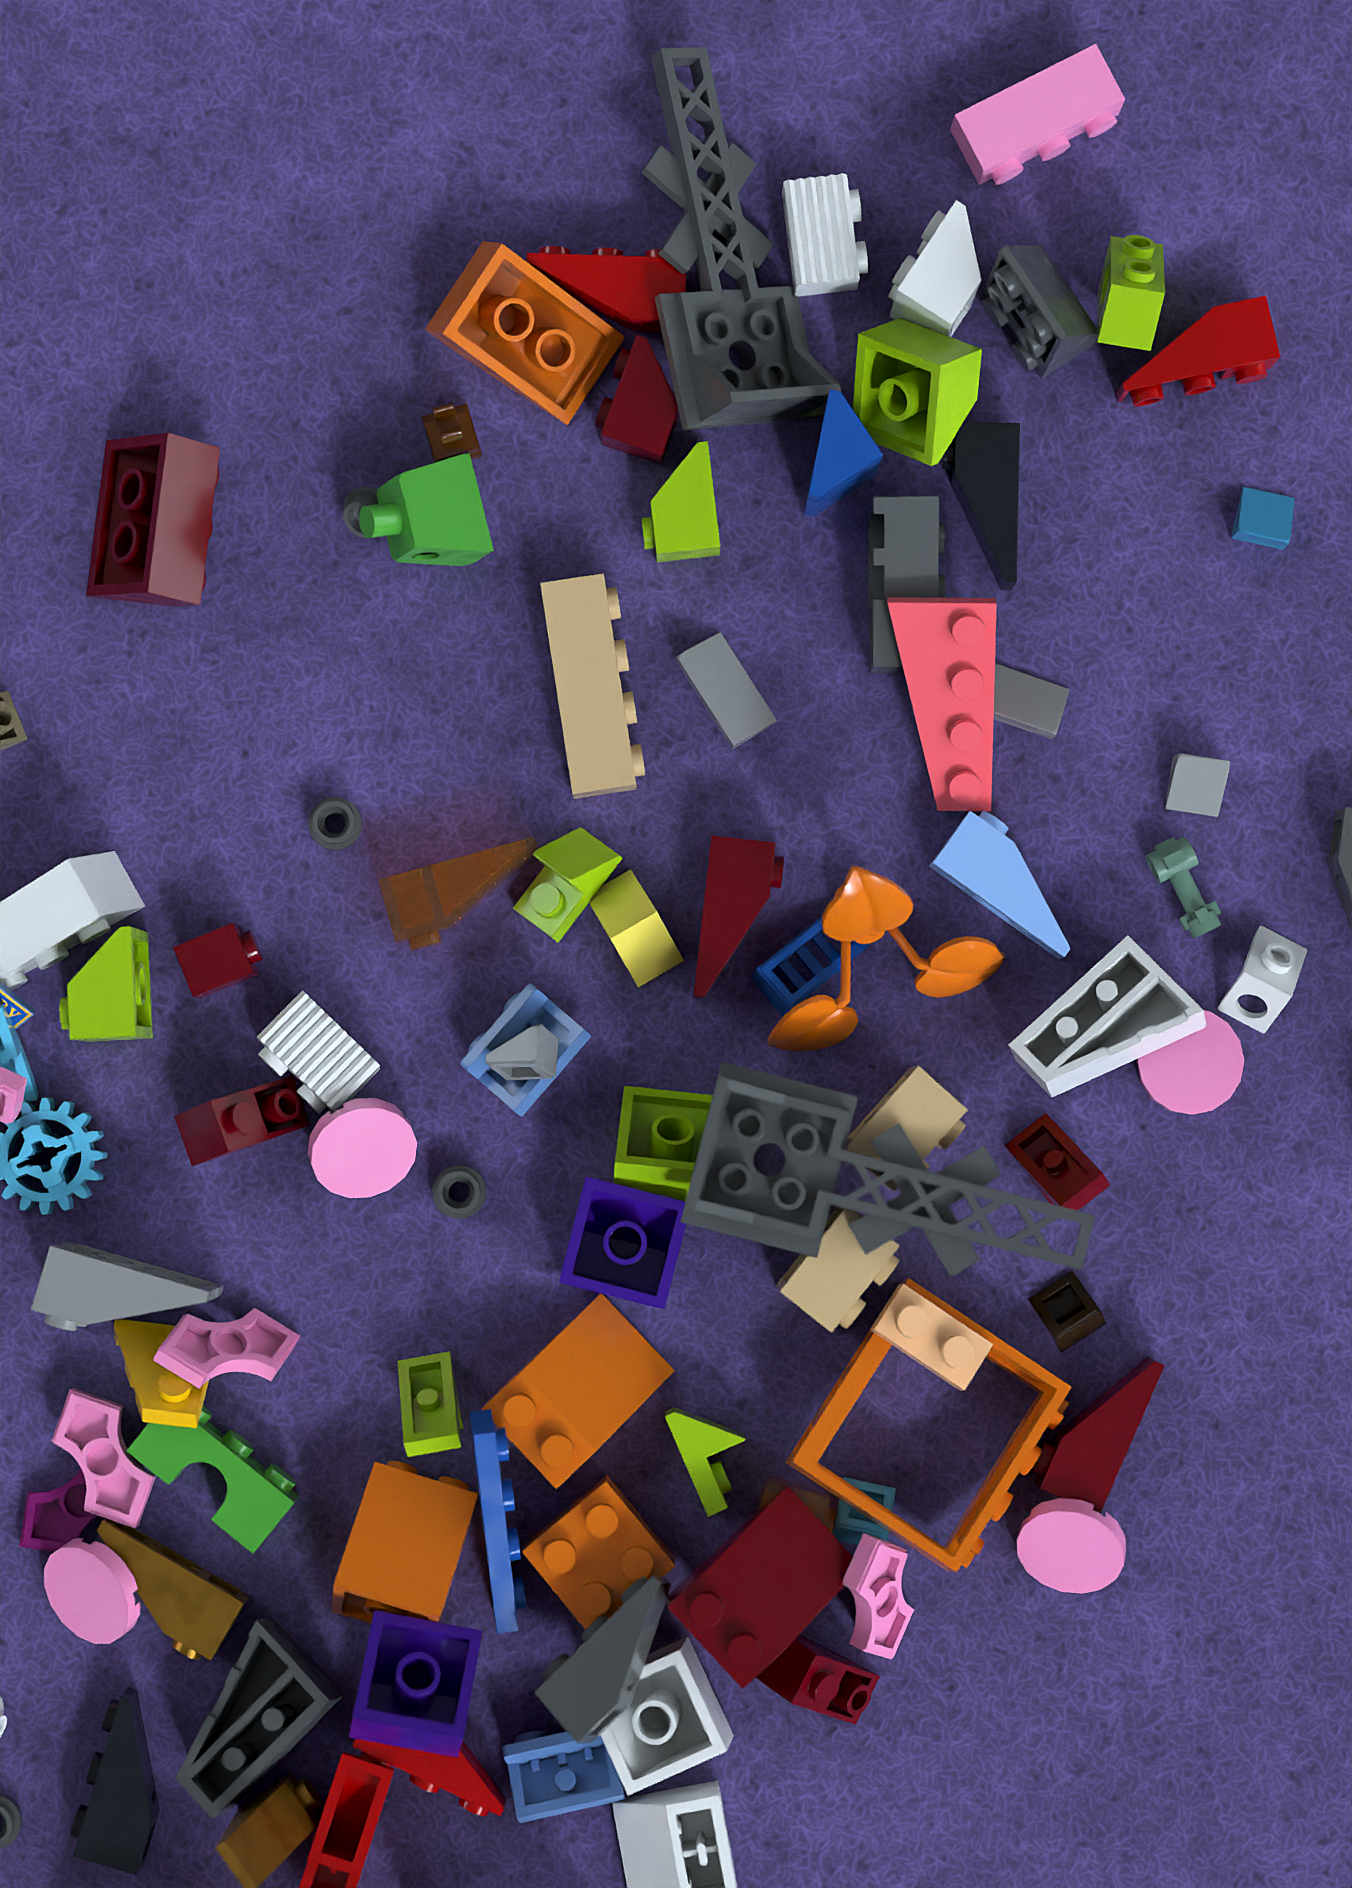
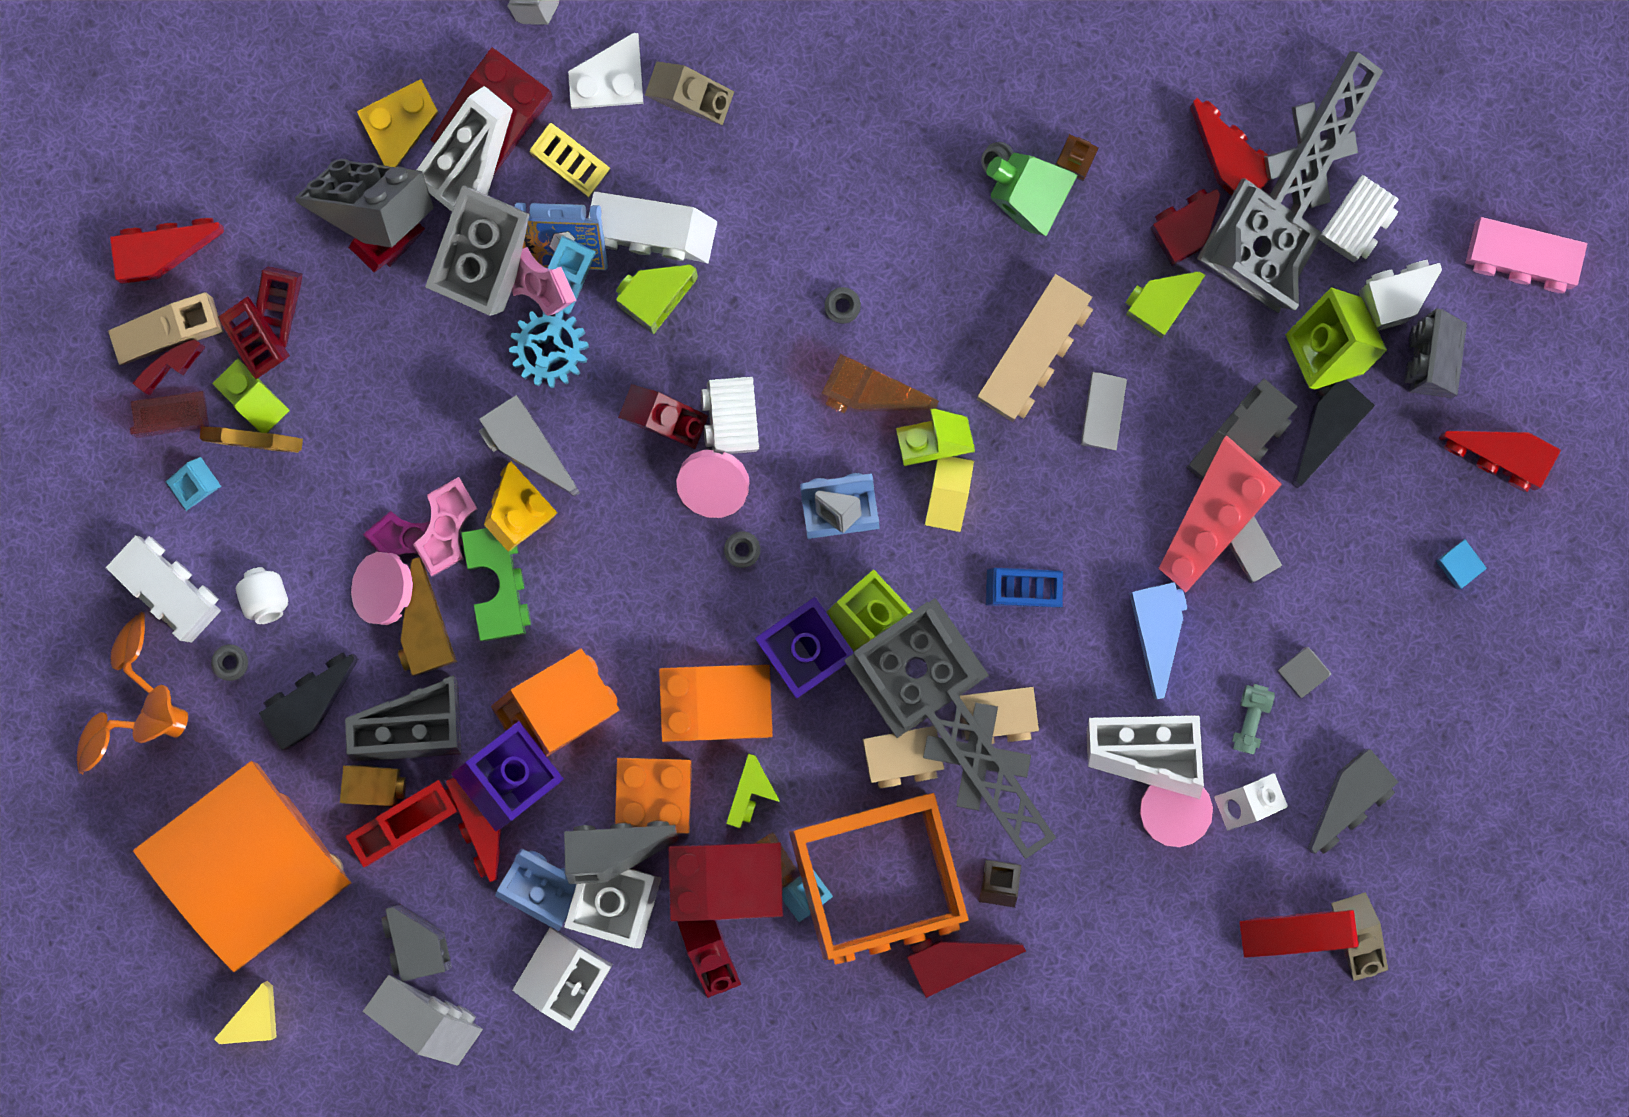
camera: 45 degrees right, 0 degrees up
(154, 520) = (884, 69): dark red slope -> none
(206, 1349) = (547, 517): bright pink tile -> none
(218, 959) = (723, 324): dark red brick -> none
(429, 1404) = (633, 643): lime slope -> none
(495, 1499) = (626, 719): blue plate -> none
(525, 331) = (1161, 136): orange slope -> none
(735, 892) = (1015, 521): dark red slope -> none
(843, 457) = (1266, 344): blue slope -> none
(862, 913) = (1073, 585): orange plant -> none
(877, 1590) = (781, 932): bright pink tile -> none
(931, 1337) = (919, 831): light nougat plate -> none
(1057, 1165) = (1060, 801): dark red slope -> none
(1071, 1546) = (897, 1002): bright pink tile -> none
(1130, 292) = (1491, 387): lime brick -> none

